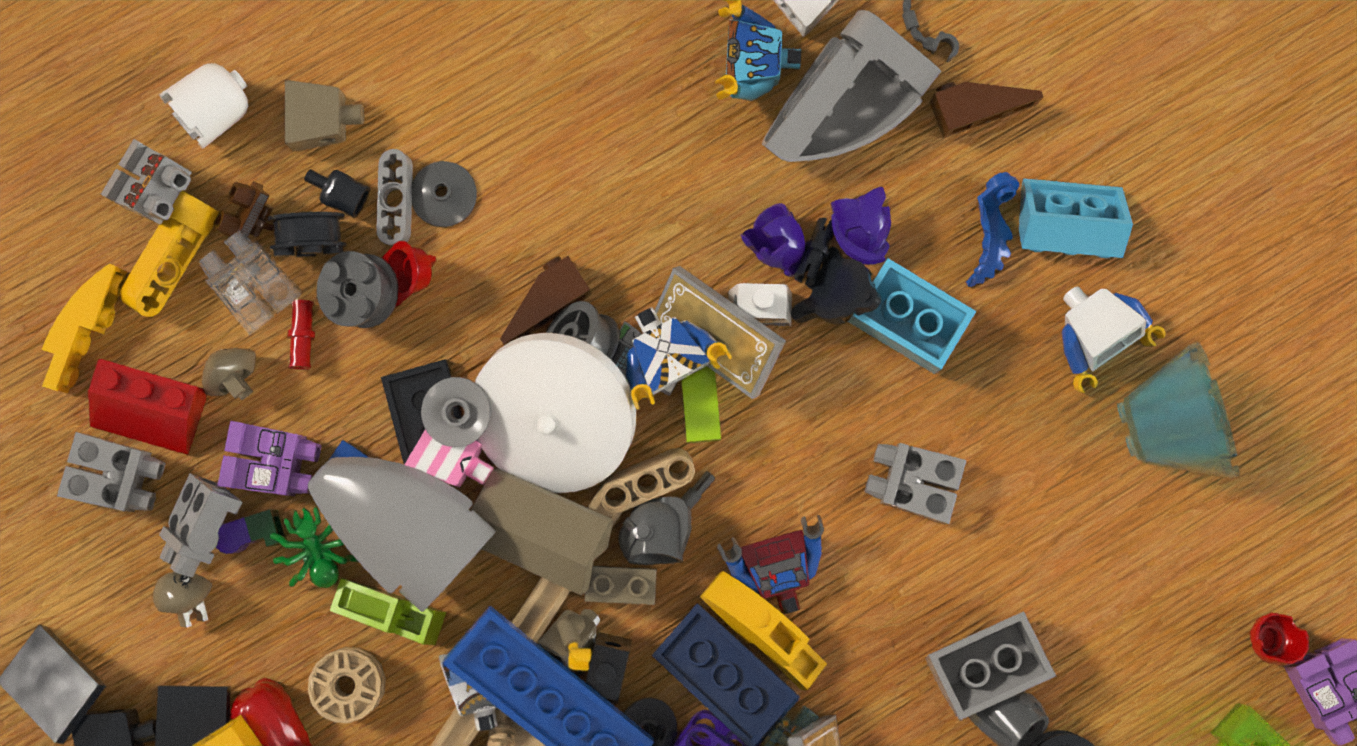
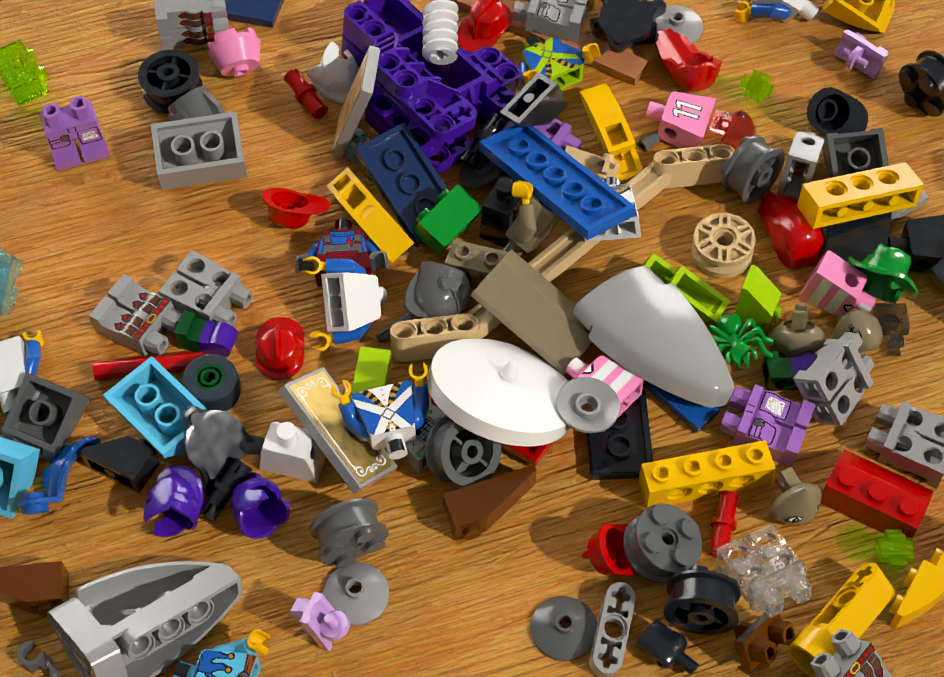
camera: 165 degrees left, 25 degrees down
(124, 342) = (894, 550): none -> clear neon green gear
(146, 624) = (894, 324): none -> clear smoke plate
(154, 672) = (887, 274): none -> green hat
(210, 649) = (836, 287): none -> bright pink torso
(246, 576) = (798, 334): none -> dark tan piece
(295, 608) = (759, 299): none -> lime slope
(324, 382) = (706, 474): none -> yellow brick
(654, 198) = (361, 606): none -> light grey dish
(668, 634) = (447, 219): none -> green brick
(673, 224) = (349, 531): none -> dark grey wheel
(675, 129) = (320, 620): none -> lavender hips
(751, 499) = (350, 300): none -> white torso
(815, 440) = (280, 348): none -> red piece
(852, 619) = (291, 207): none -> red piece
(865, 378) = (213, 382): none -> black wheel
(898, 428) = (204, 335): none -> leg
(933, 257) = (123, 461): none -> black slope
(946, 380) = (123, 367): none -> red piece
(969, 428) = (135, 317): none -> light grey hips
(1033, 292) = (43, 415): none -> dark grey slope
(1154, 654) = (70, 123): none -> medium lavender hips

